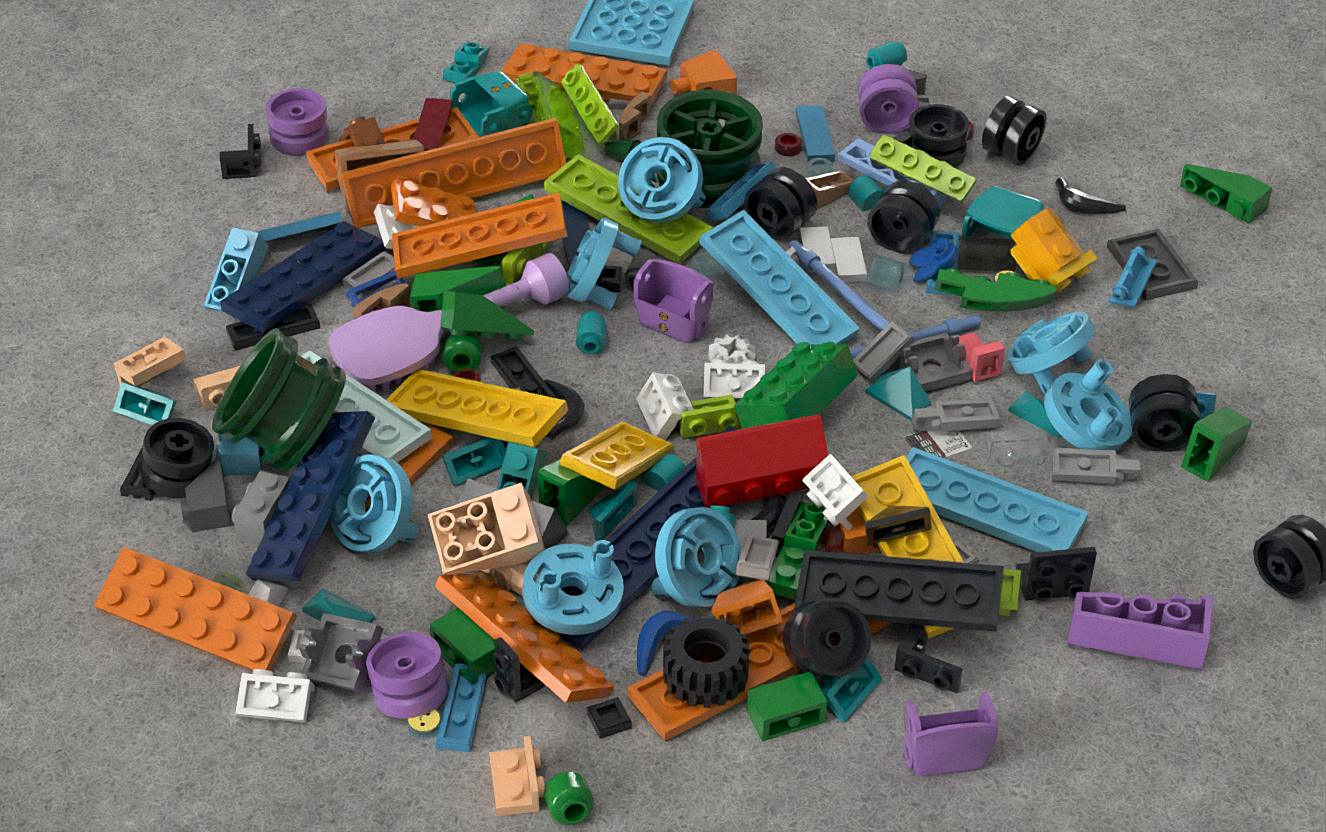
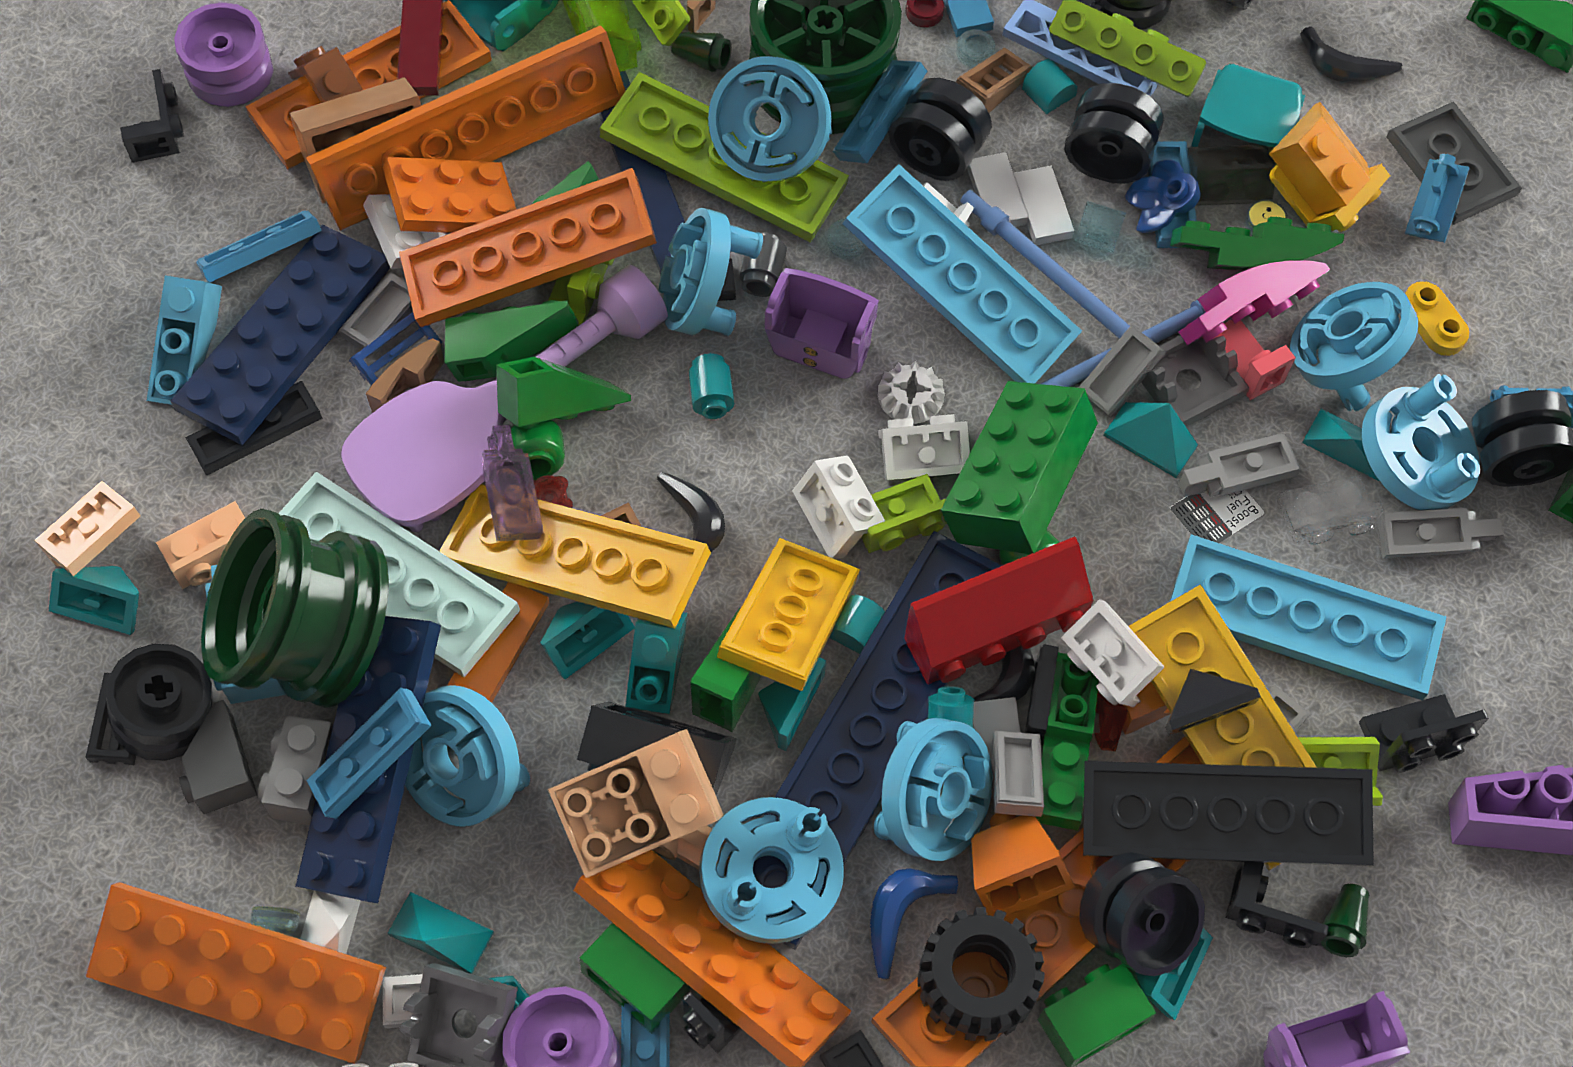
camera: 10 degrees left, 20 degrees up
(311, 484) = (368, 753): none -> dark azure tile
(439, 364) = (510, 488): none -> hinge
(519, 372) = (630, 478): black tile -> none
(979, 676) = (1347, 922): none -> dark green cone
(986, 312) = (1253, 294): none -> slope
(1119, 349) = (1436, 316): none -> yellow plate

